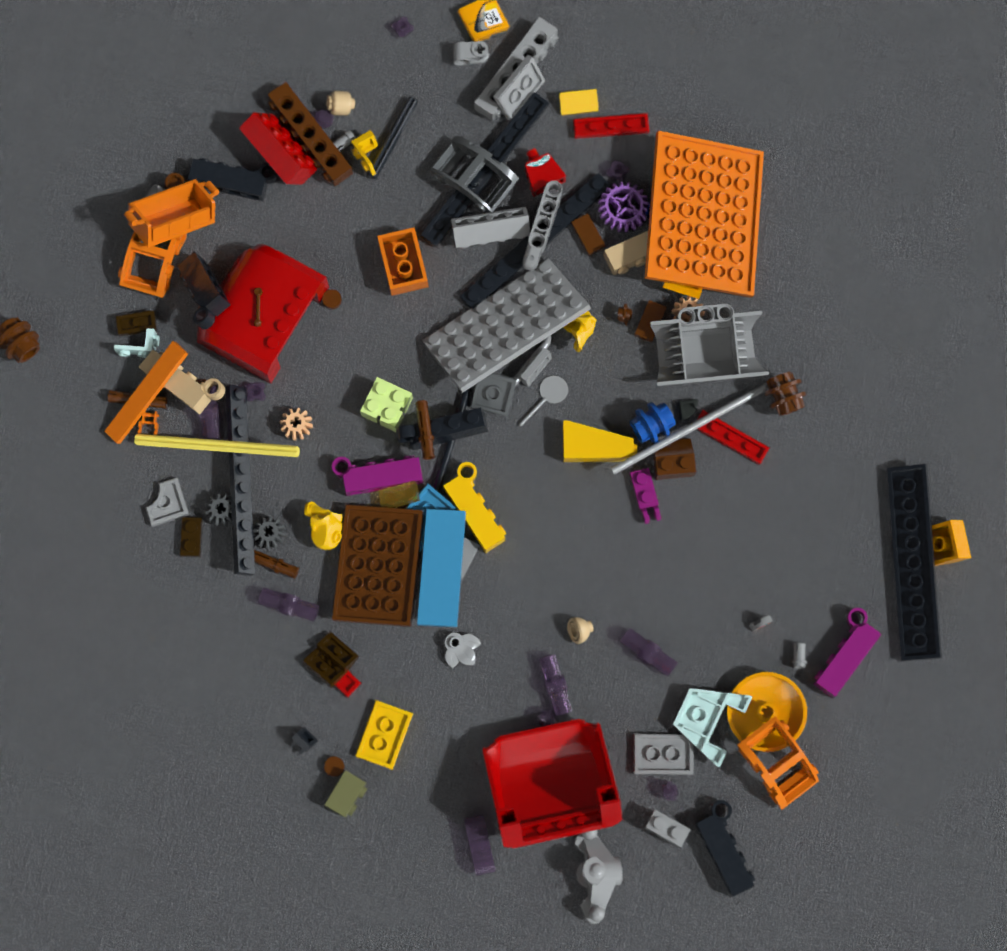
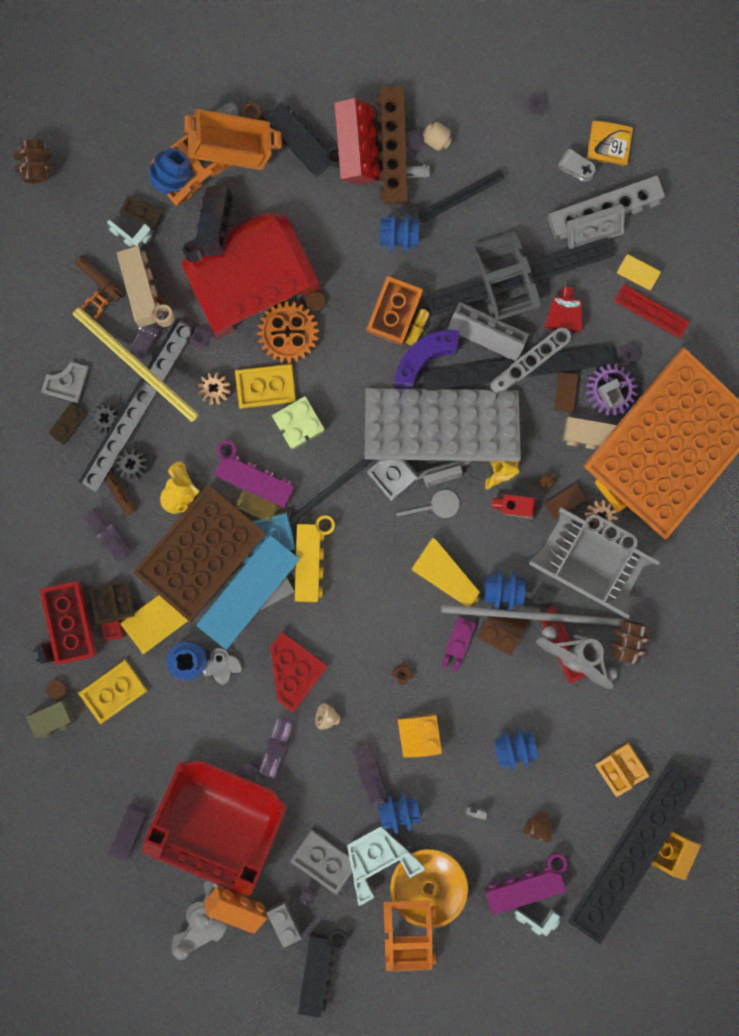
camera: 35 degrees right, 10 degrees up
(139, 270) = (169, 171): none -> blue piece
(146, 392) = (108, 279): orange tile -> none
(258, 292) = (253, 259): reddish brown hinge -> none
(306, 699) = (68, 622): none -> red brick
(337, 350) = (287, 315): none -> orange gear
(337, 394) = (265, 386): none -> yellow tile
(362, 145) = (430, 185): yellow bracket -> none
(362, 197) = (399, 232): none -> blue piece
(379, 652) = (153, 624): none -> yellow tile
(426, 438) = (312, 469): reddish brown pin -> none
(430, 263) = (417, 327): none -> yellow axle
(438, 670) = (174, 660): none -> blue piece
(446, 428) = (330, 477): black hinge -> none
(450, 275) = (423, 351): none -> dark purple window
(525, 610) = (294, 671): none -> red plate
(618, 842) = (235, 910): none -> orange brick
(619, 344) = (524, 507): none -> red torso
(621, 547) = (397, 673): none -> reddish brown plate
(625, 208) = (611, 394): none -> light grey panel
(668, 591) = (419, 736): none -> light orange slope
(697, 665) = (399, 813): none -> blue piece
(753, 434) = (574, 659): none -> light grey piece
(755, 545) = (515, 749): none -> blue piece
(799, 656) = (488, 860): light grey pin -> none
(821, 599) = (539, 827): none -> reddish brown helmet
(854, 504) = (622, 769): none -> light orange slope
(887, 671) = (550, 922): none -> light aqua bracket

